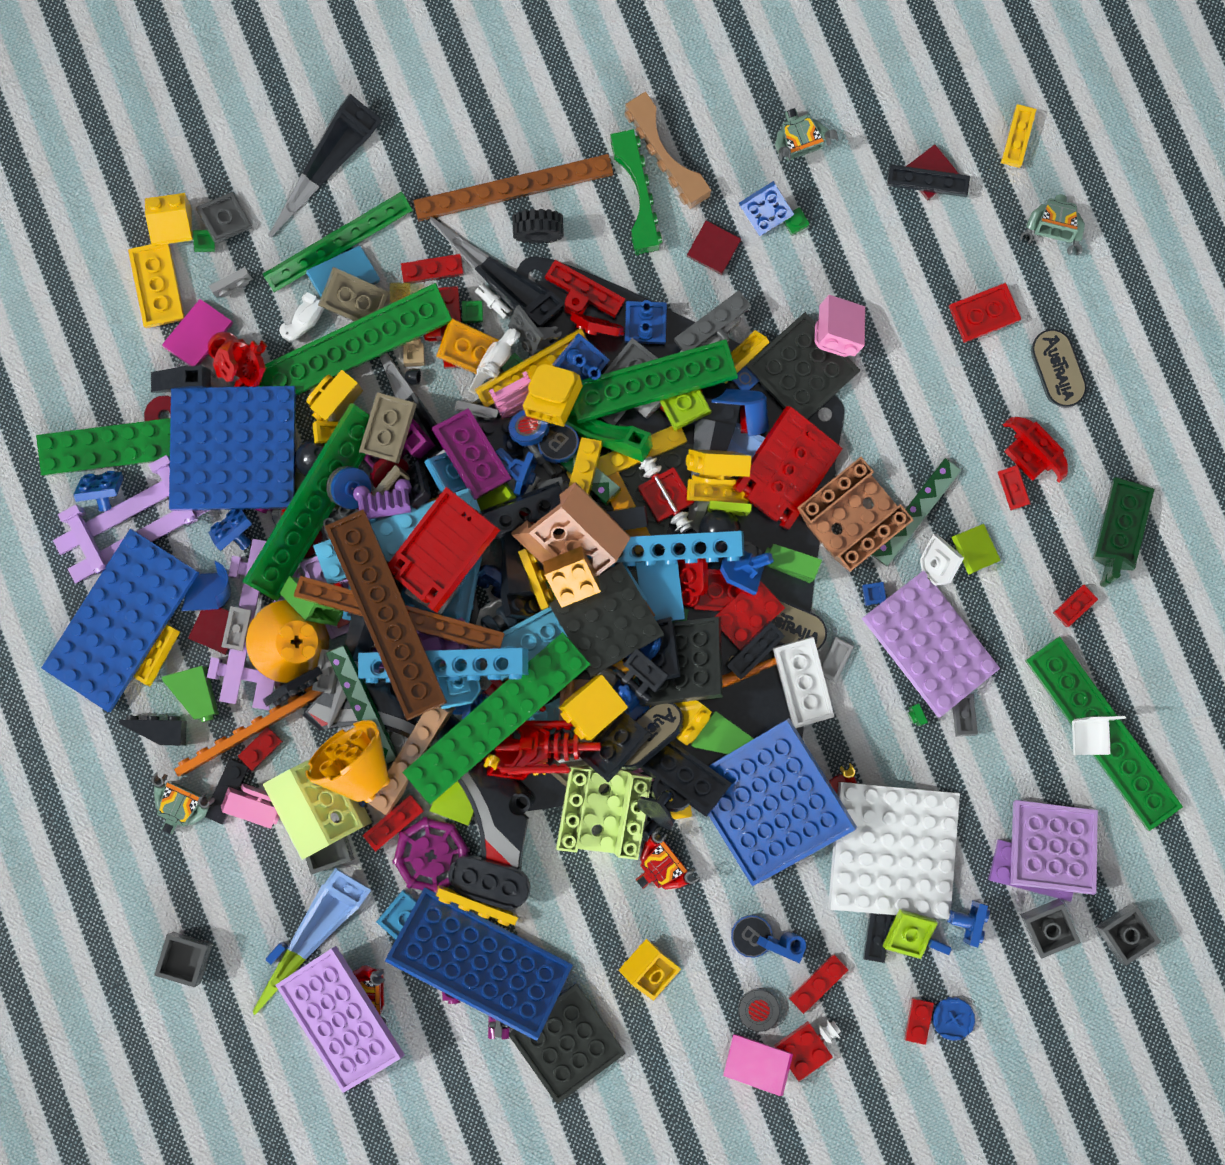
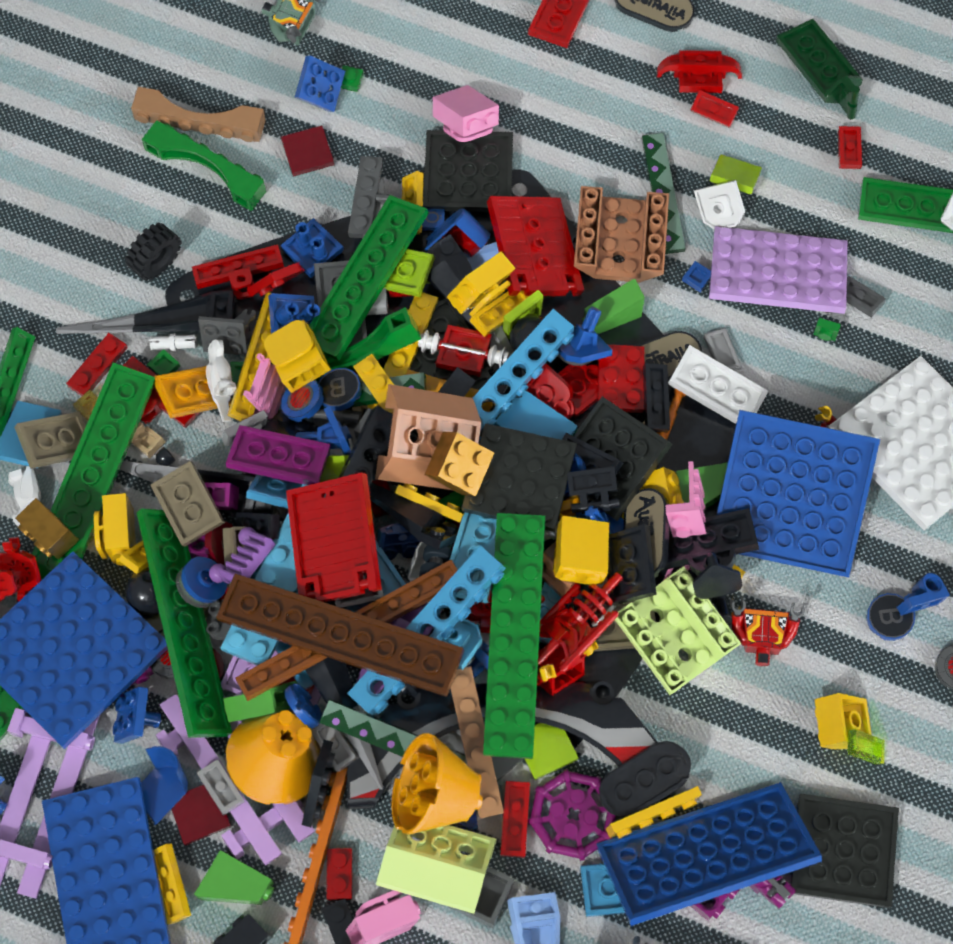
camera: 45 degrees left, 15 degrees down
(288, 357) = (49, 532): none -> pearl gold brick
(328, 630) = (300, 703): none -> blue tile
(513, 187) = (100, 250): dark orange plate -> none
(644, 999) = (866, 747): none -> clear neon green tile
(683, 756) = (689, 518): none -> bright pink plate

